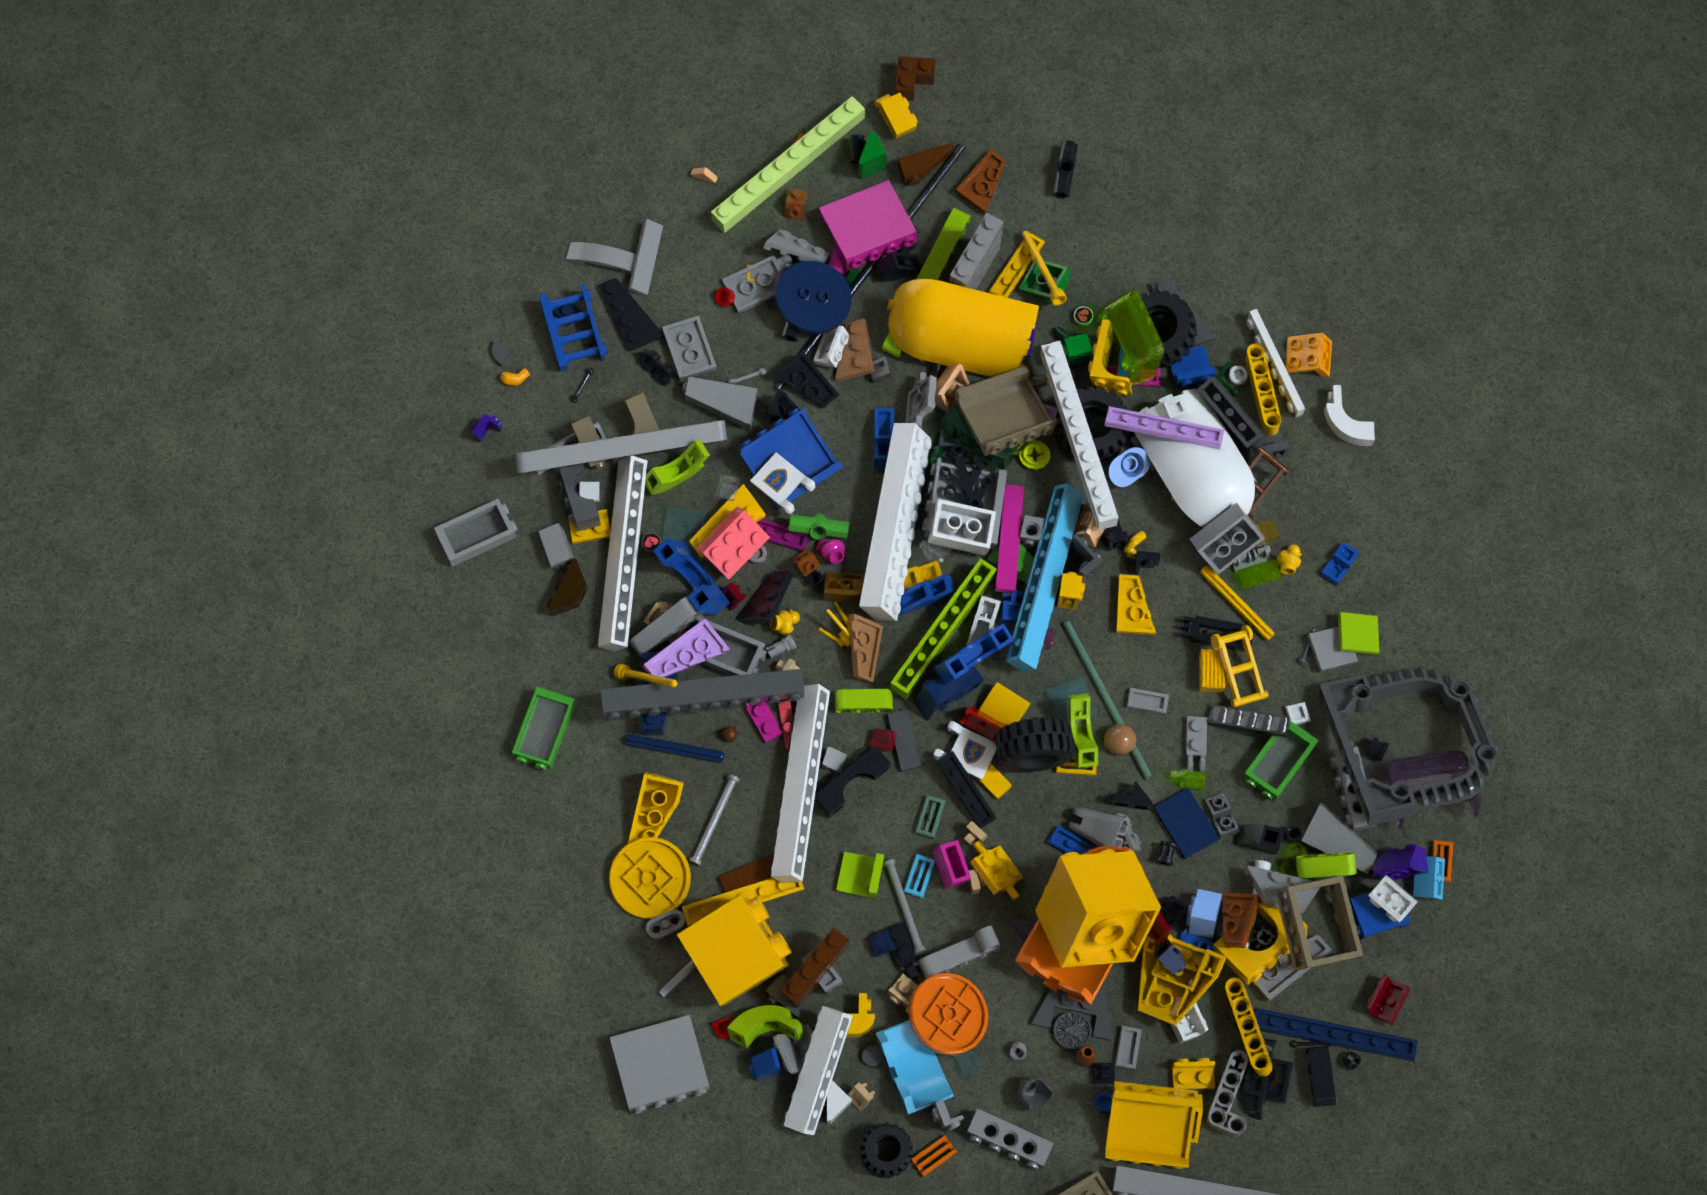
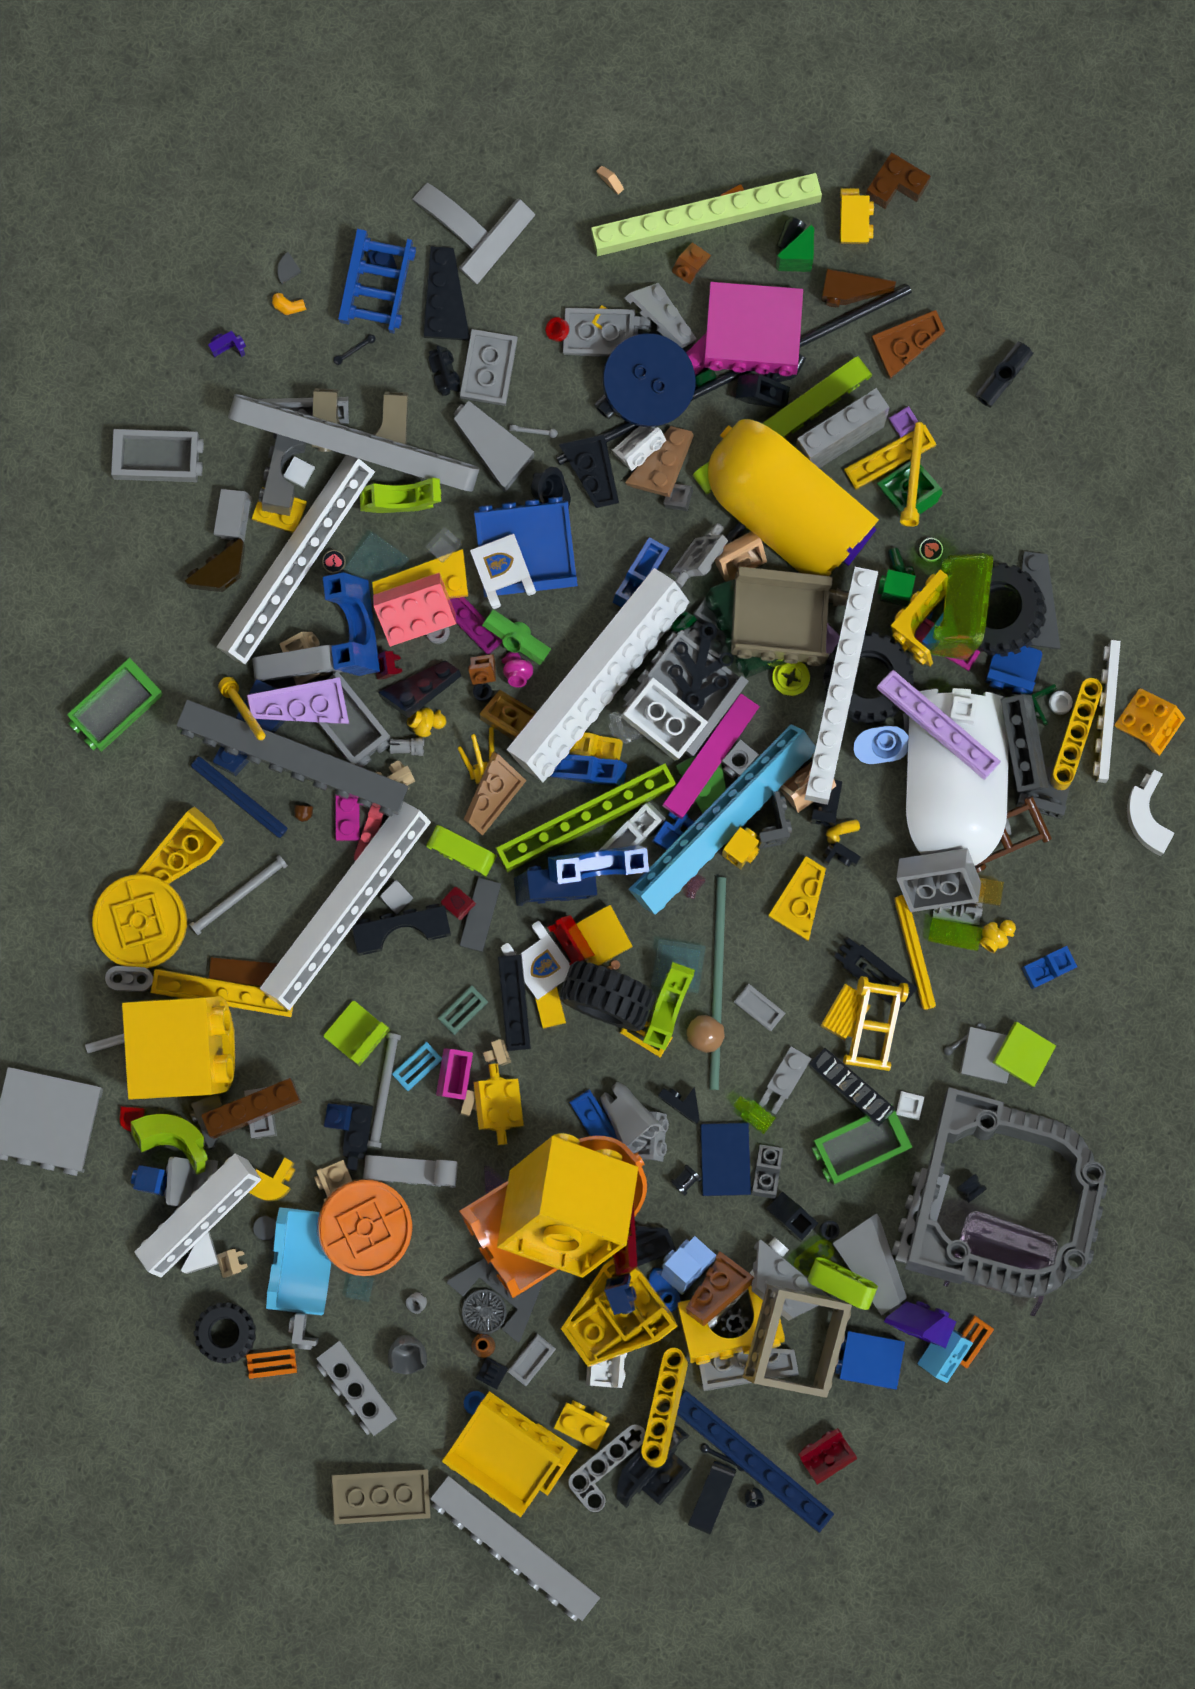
camera: 30 degrees right, 10 degrees up
(1012, 238) = (903, 421): none -> medium lavender tile
(1392, 899) = (888, 1357): white bracket -> none

